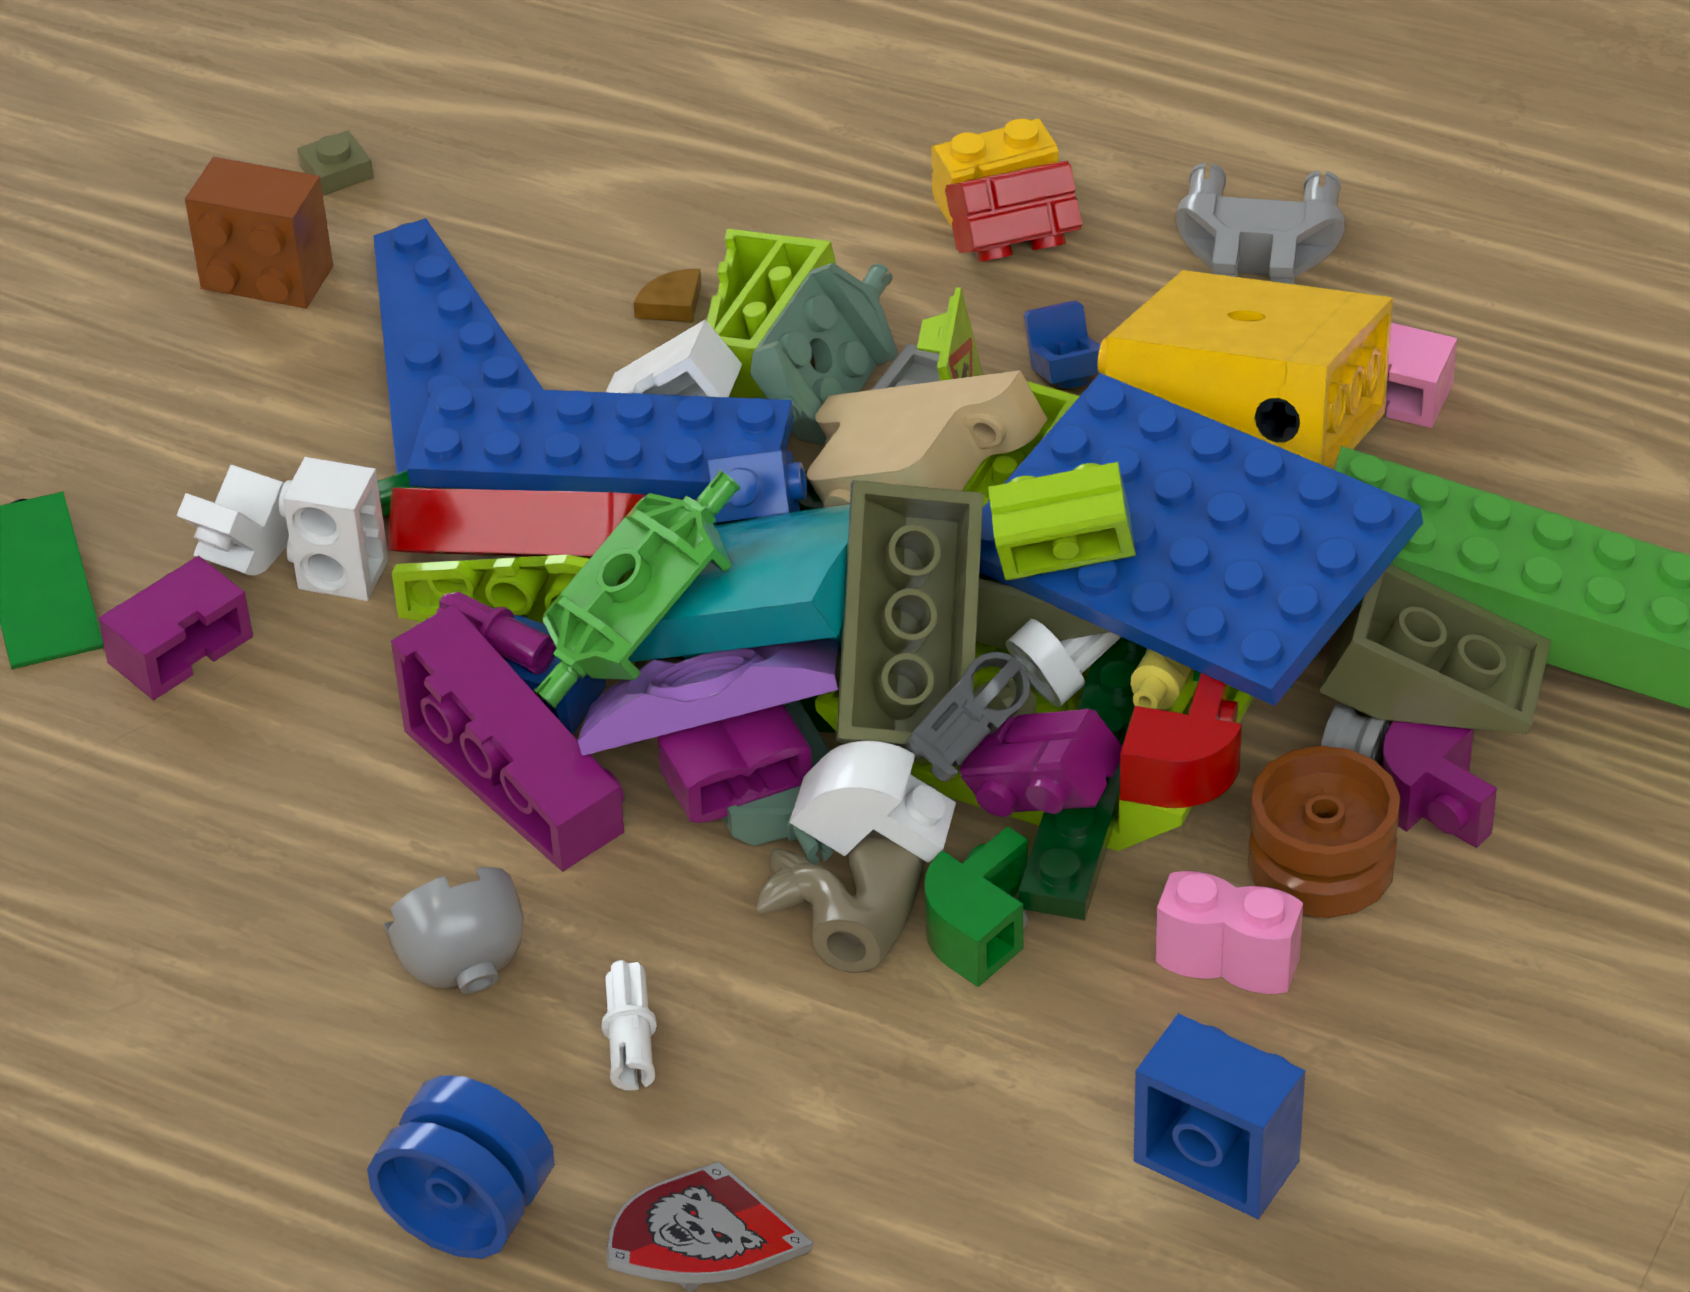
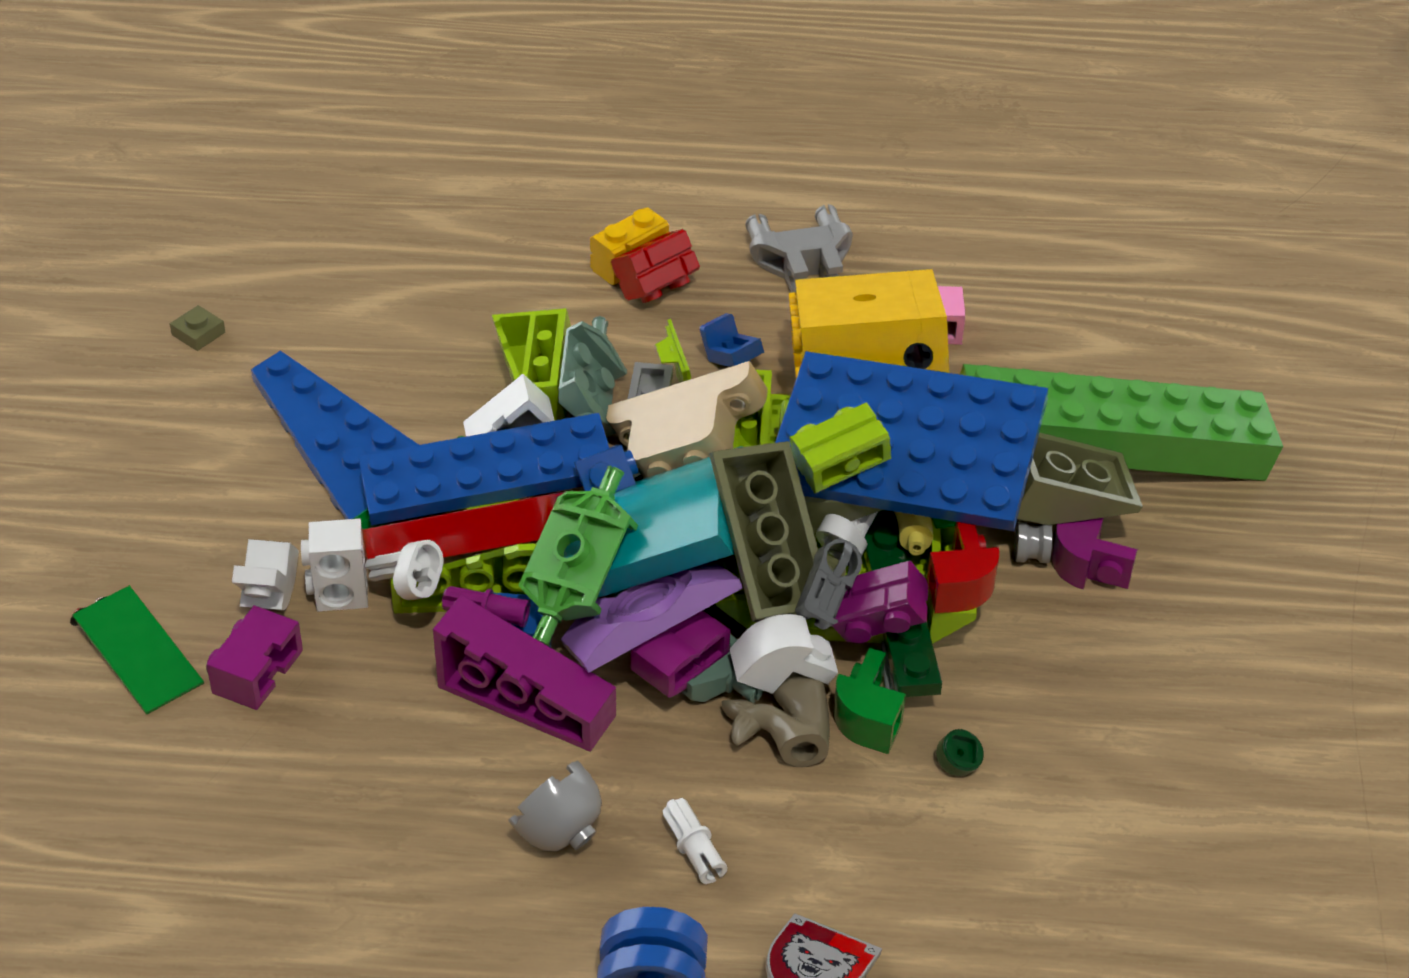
camera: 25 degrees left, 0 degrees up
(259, 232) = (181, 382): dark orange brick -> none
(428, 546) = (414, 563): none -> white piece
(669, 296) = (464, 366): pearl gold tile -> none
(1072, 1010) = (960, 752): none -> dark green tile
(1218, 1115) = (1096, 794): blue brick -> none
(1229, 932) = (1028, 678): bright pink brick -> none
(1324, 829) = (1051, 601): dark orange wheel -> none

